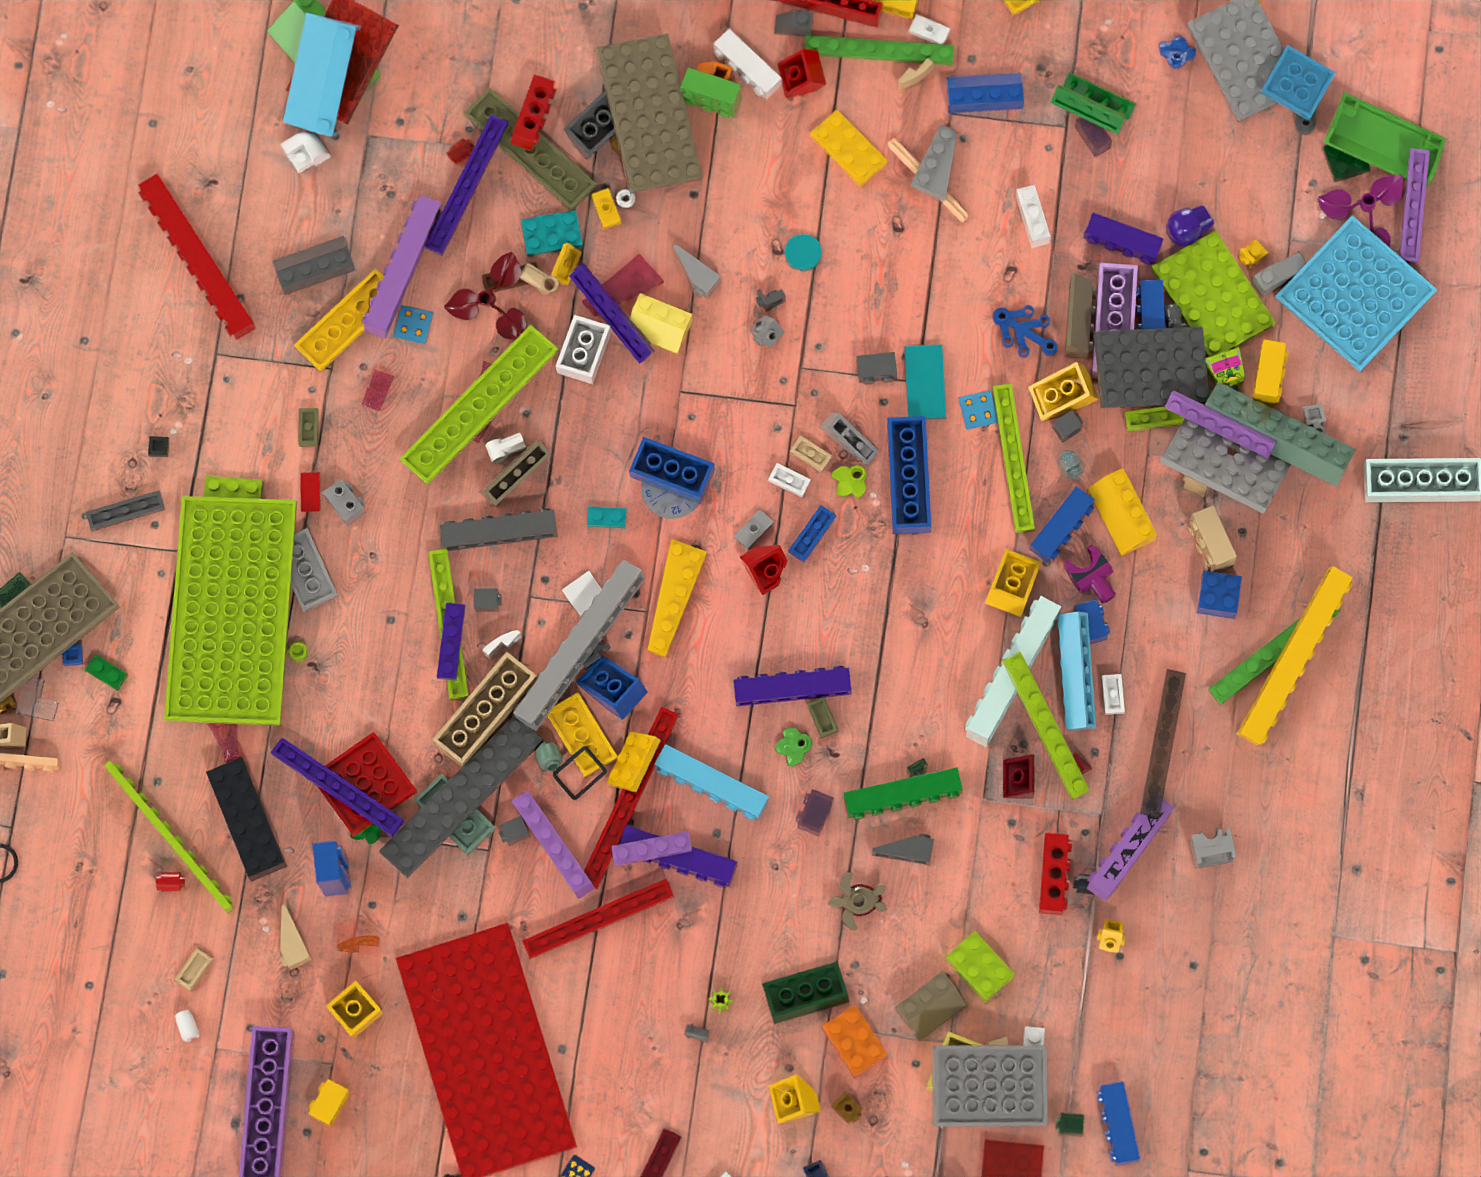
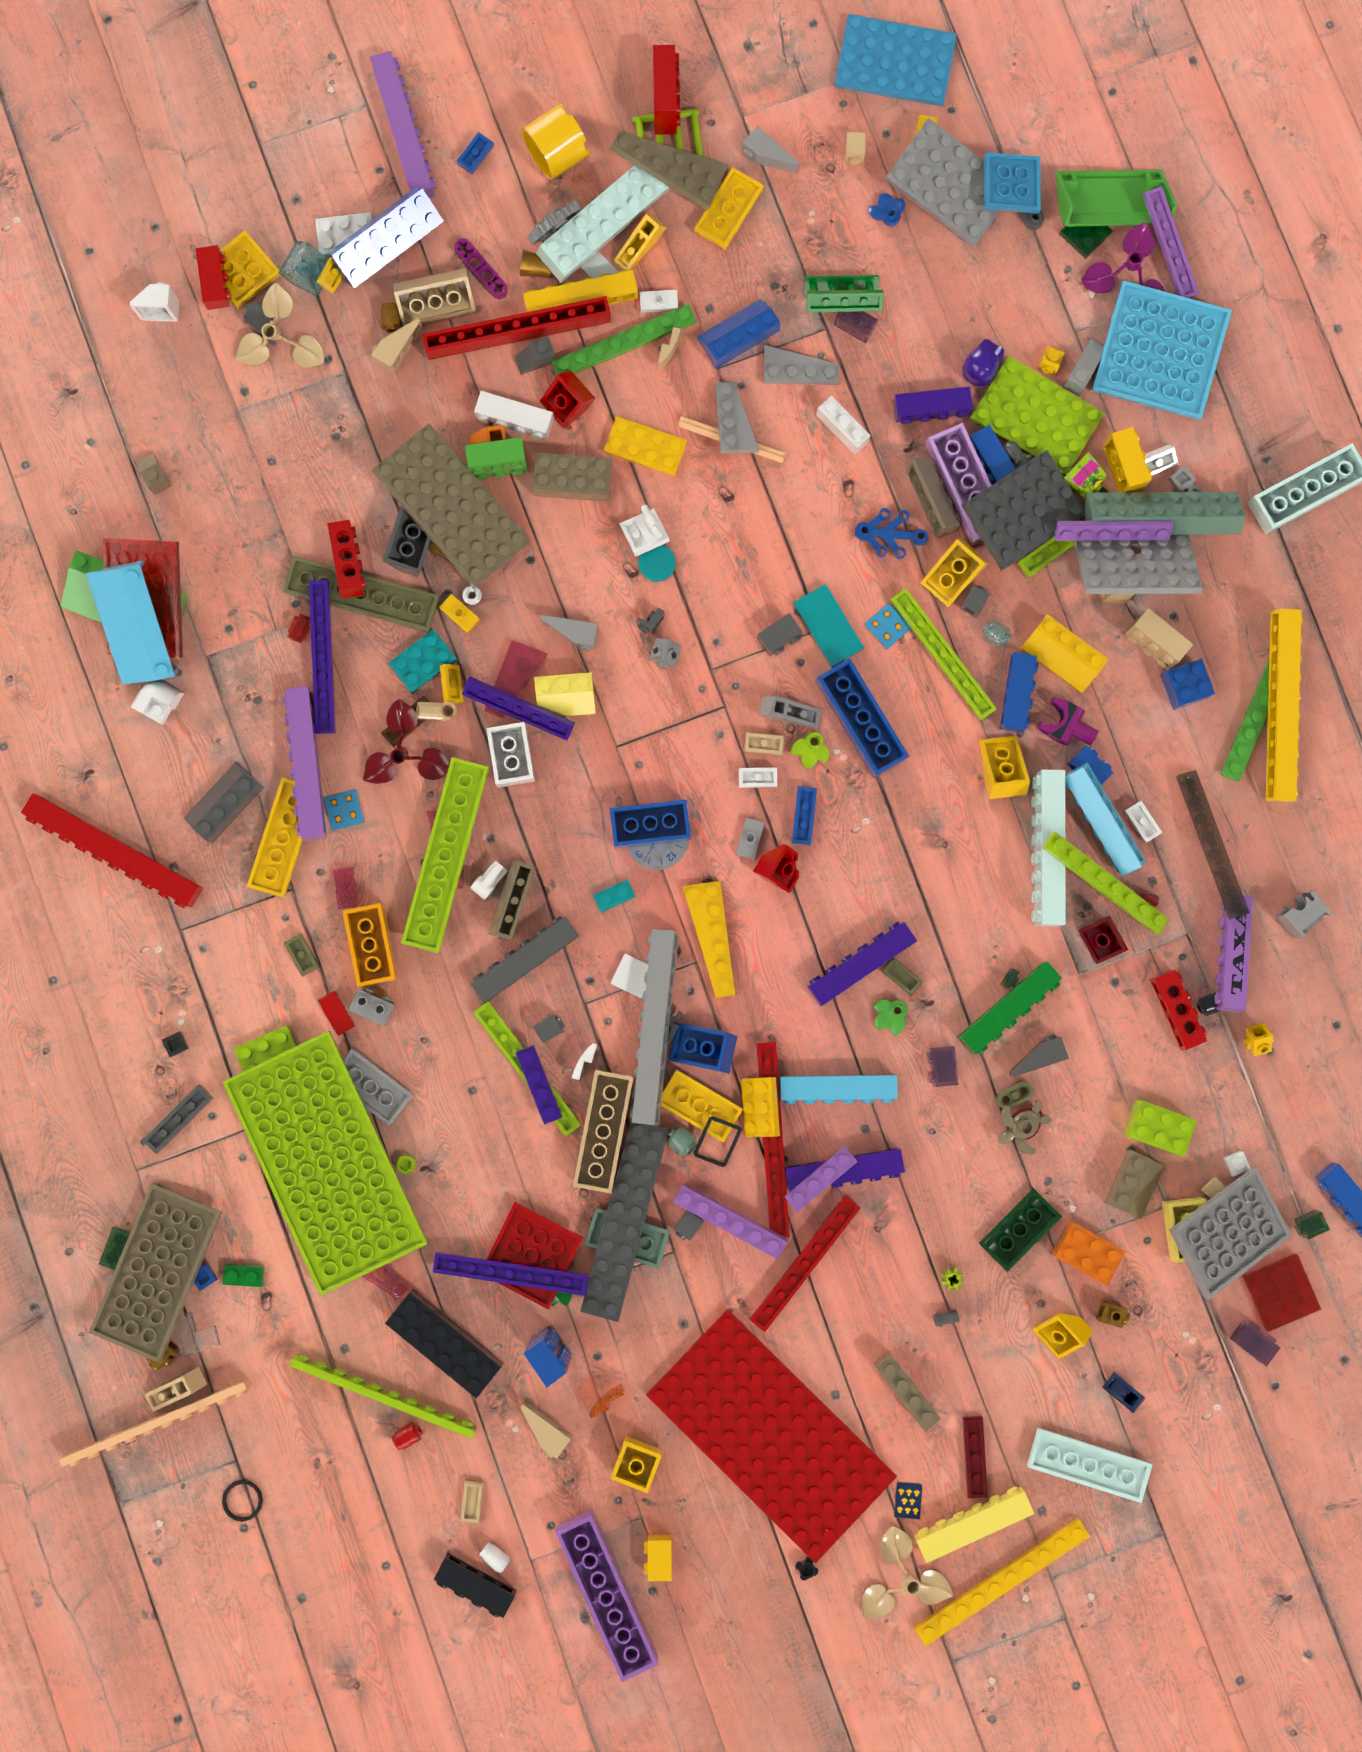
camera: 35 degrees left, 10 degrees up
(157, 1040) = (474, 1585): none -> black brick
(372, 448) = (370, 945): none -> light orange brick
(626, 1075) = (907, 1391): none -> dark tan brick
(769, 142) = (572, 477): none -> dark tan brick
(806, 219) = (644, 531): none -> white plate
(865, 869) = (1014, 1095): none -> olive plate
(1018, 147) = (794, 368): none -> light grey wing
(1301, 388) = (1161, 459): none -> white slope

